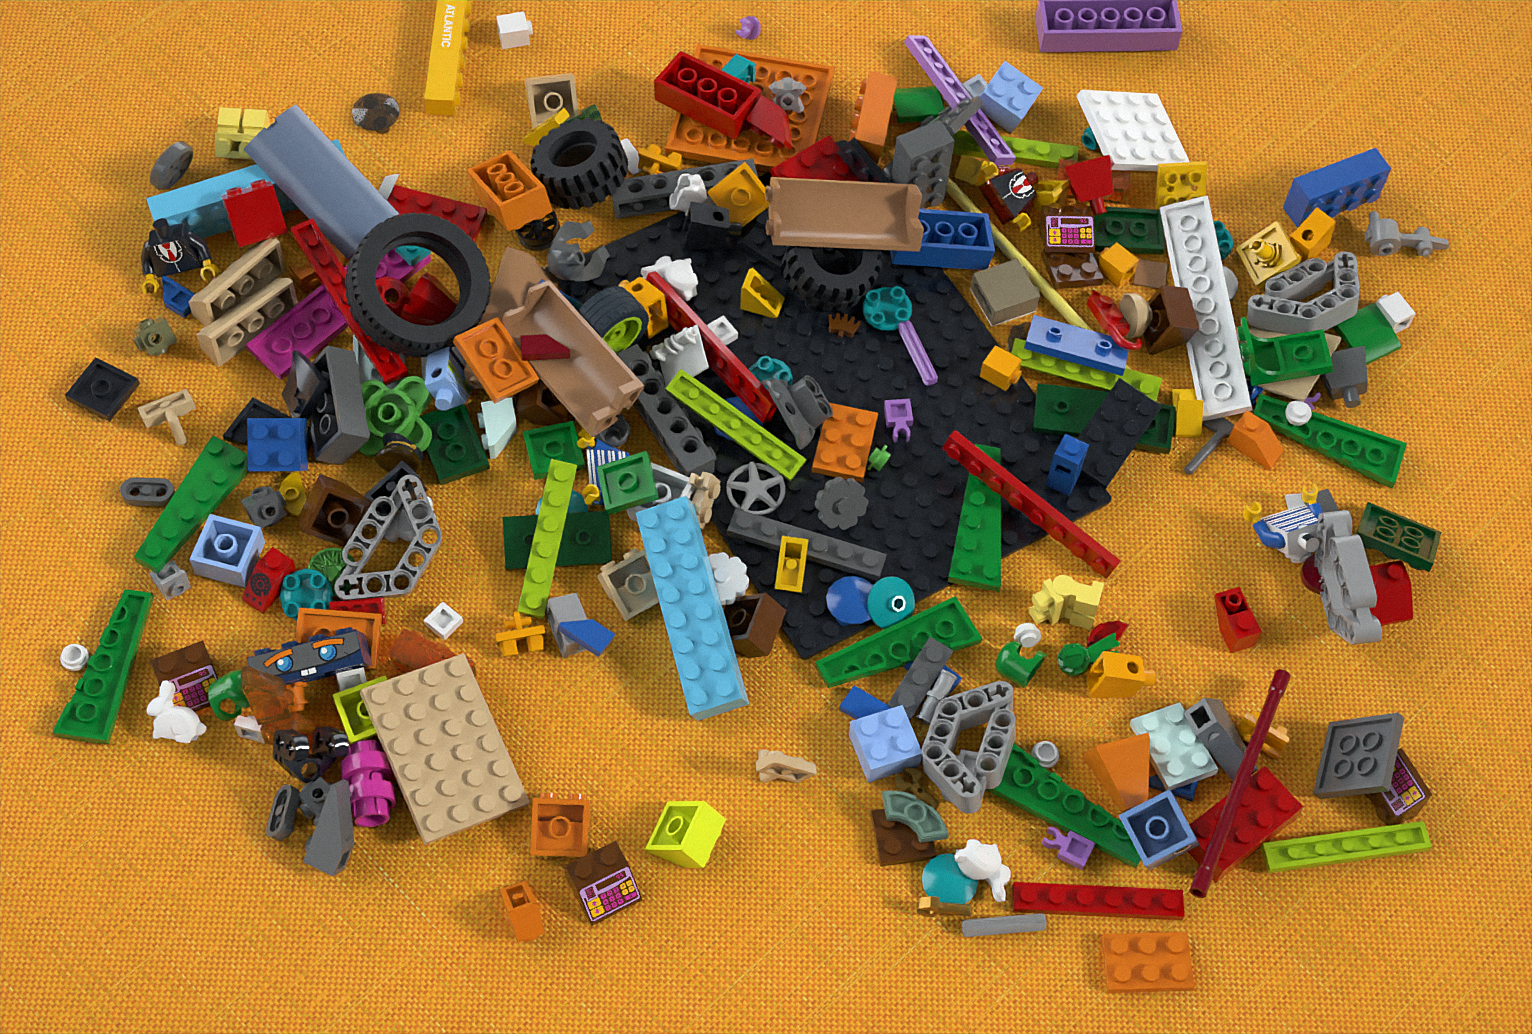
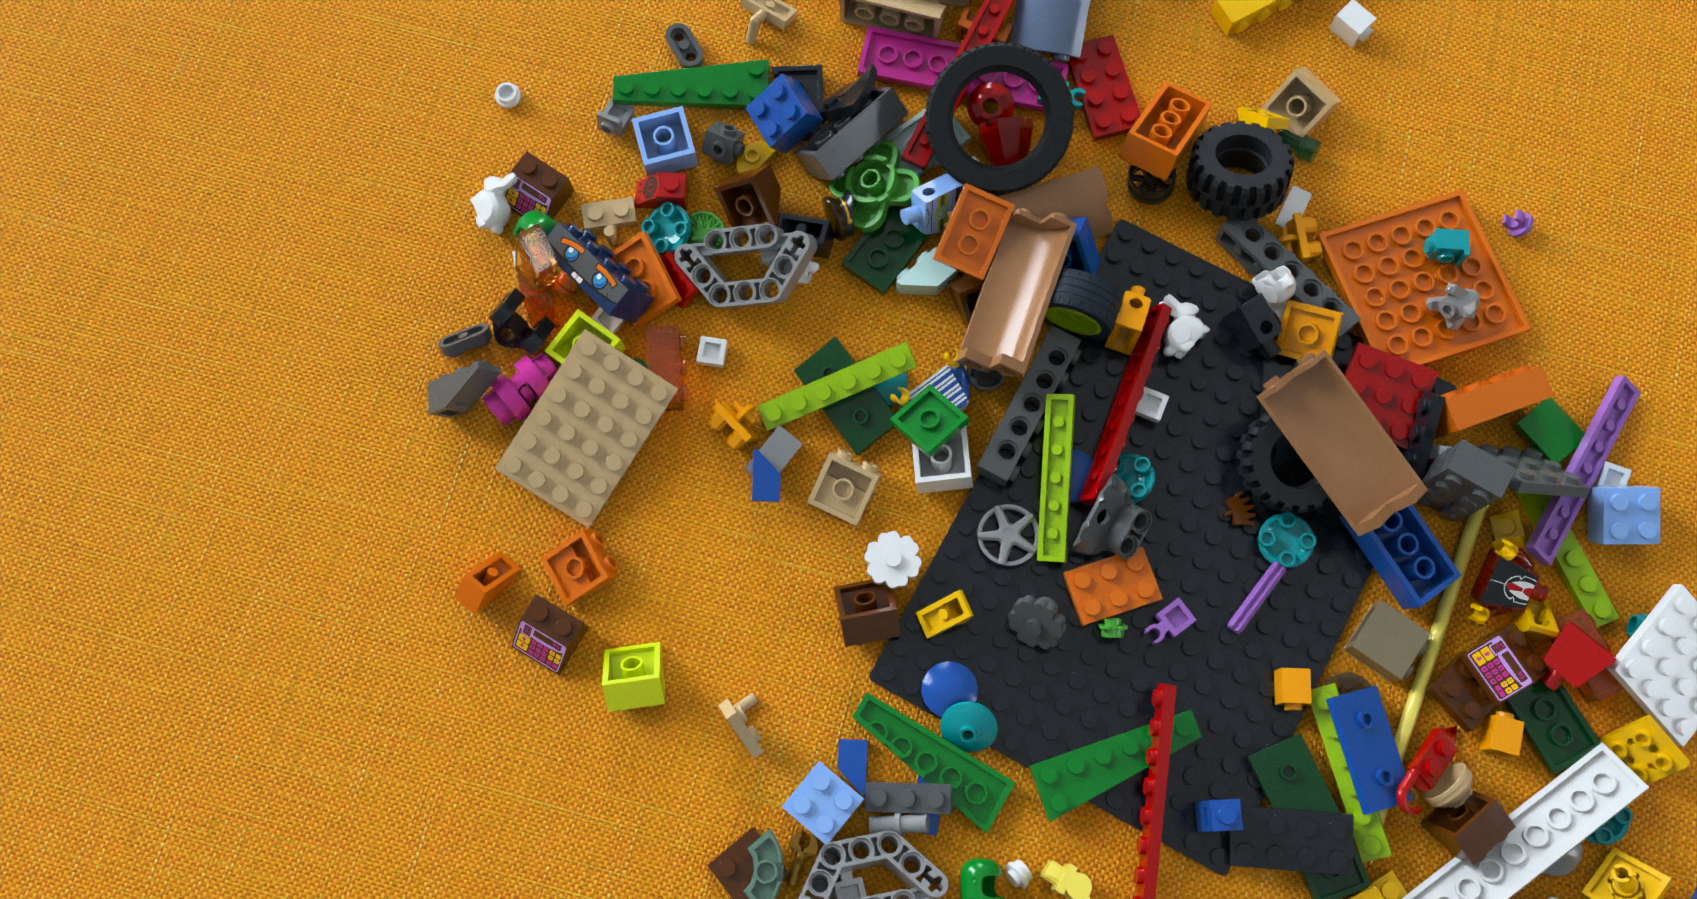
camera: 65 degrees right, 15 degrees up
(100, 692) = (491, 133): green wing -> none
(257, 635) = (609, 216): none -> tan plate
(312, 797) = (494, 351): dark grey brick -> none
(387, 185) = (1103, 31): white sticker -> none
(542, 348) = (1010, 261): dark red tile -> none
(555, 443) = (932, 335): green plate -> none
(568, 261) = (1129, 219): dark grey piece -> none
(681, 352) = (1098, 386): white hinge -> none
(692, 609) = (841, 552): medium azure brick -> none
(706, 94) = (1401, 234): red brick -> none
(707, 490) = (971, 493): tan plate -> none
(760, 296) = (1215, 417): yellow slope -> none
(772, 121) = (1414, 310): red slope -> none
(820, 547) = (984, 624): dark grey plate -> none
(1150, 274) = (1517, 776): medium nougat piece -> none

